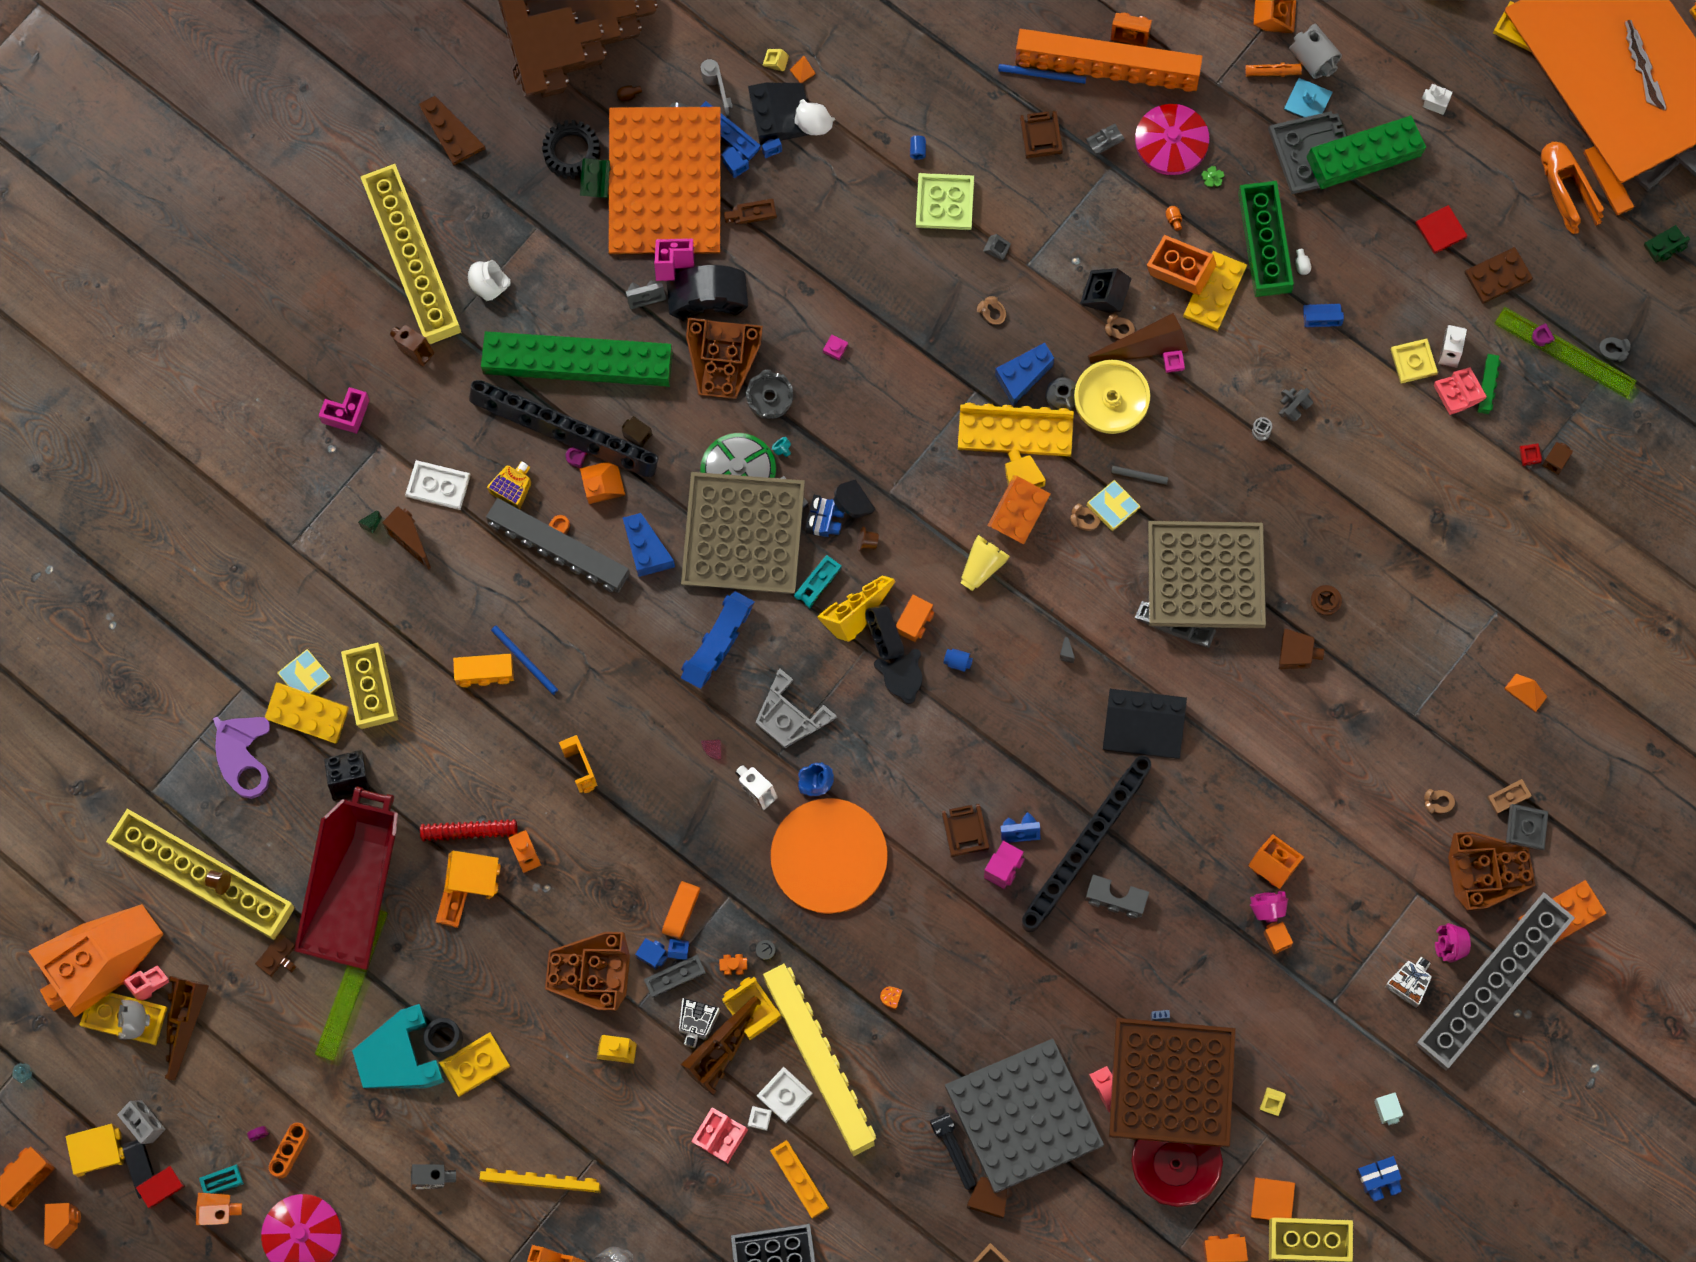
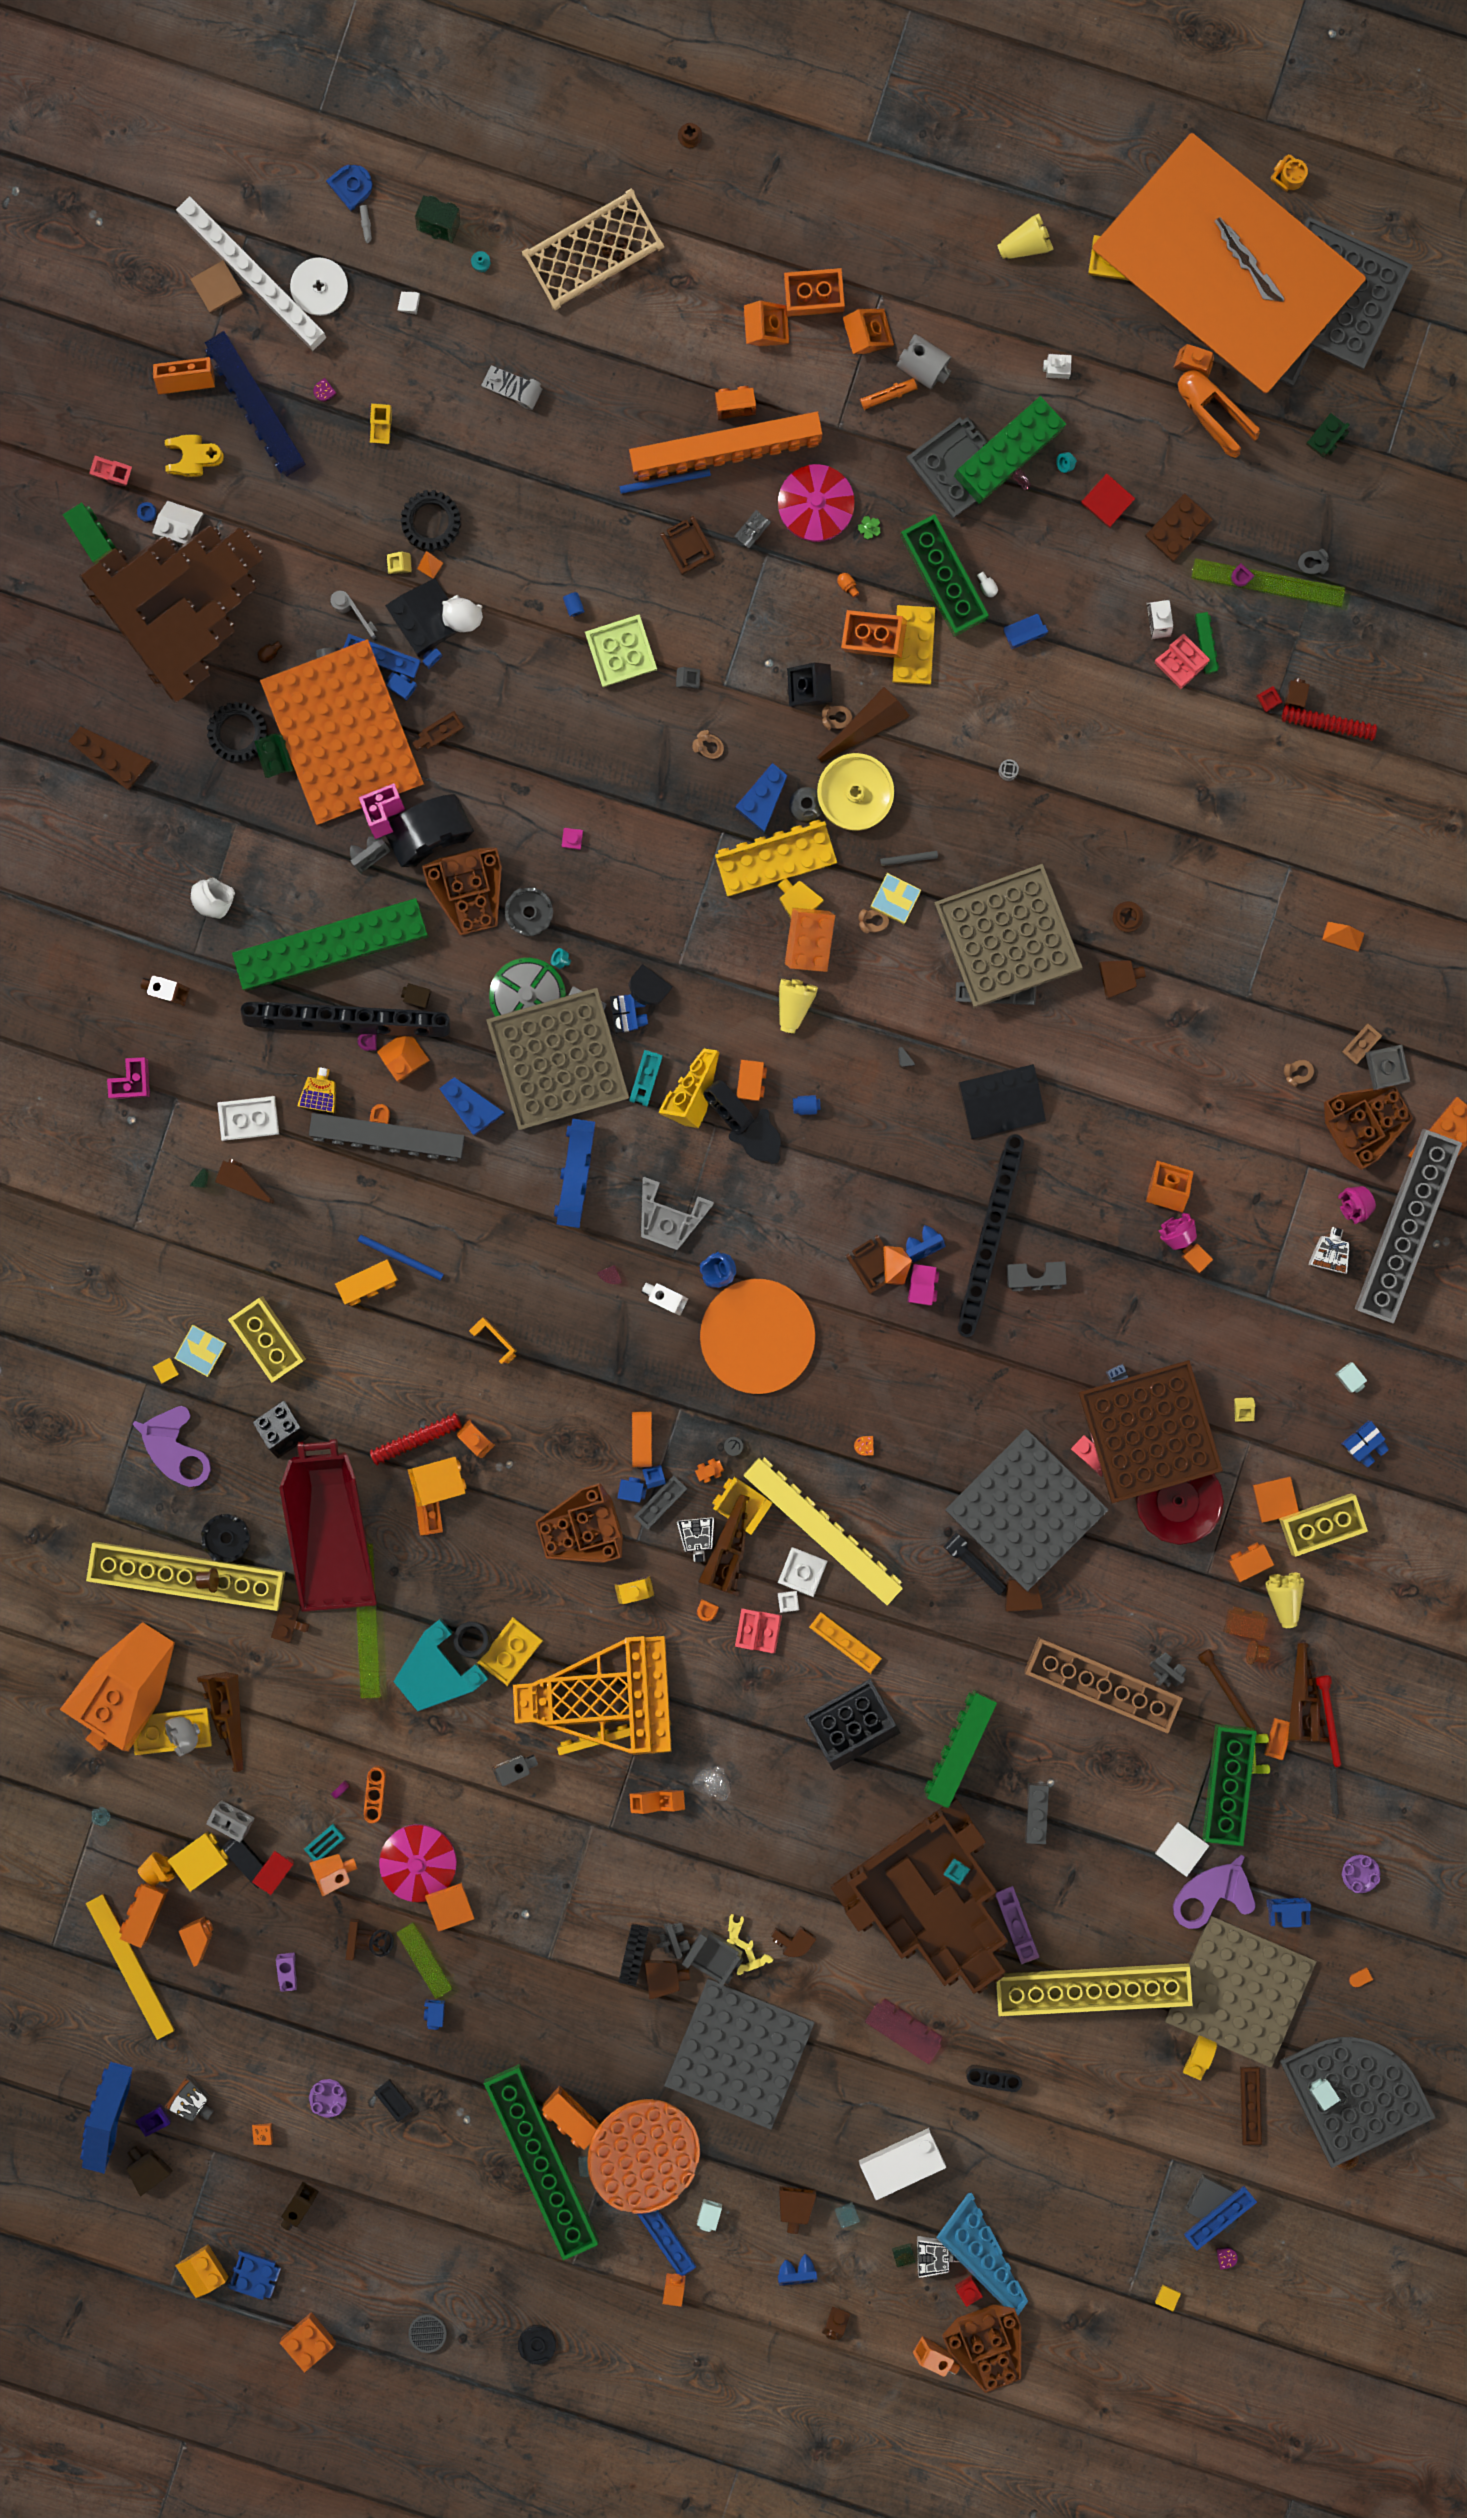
camera: 25 degrees left, 15 degrees up
(51, 1141) = (156, 1869): none -> light orange piece
(143, 984) = (177, 1696): coral brick -> none
(251, 840) = (216, 1547): none -> black plate
(264, 681) = (165, 1370): none -> yellow tile
(306, 712) = (218, 1386): yellow plate -> none
(410, 254) = (126, 899): light yellow brick -> none
(582, 1161) = (646, 1696): none -> light orange wing
(678, 1097) = (706, 1610): none -> orange tile
(824, 14) = (424, 499): none -> black tyre
(867, 539) = (677, 1020): reddish brown piece -> none
(985, 836) = (896, 1265): none -> orange slope
(1173, 361) = (900, 732): dark pink plate -> none
(1300, 397) = (1027, 731): dark grey hips -> none
(1307, 99) = (932, 411): medium azure piece -> none
(1368, 182) = (1022, 479): none -> clear pink tile
(1414, 182) = (1066, 462): none -> teal tile
(1414, 361) = (1127, 645): light yellow tile -> none
(1566, 133) = (1194, 358): none -> orange torso
(1580, 494) = (1329, 723): none -> red piece
(1611, 186) = (1263, 402): orange tile -> none

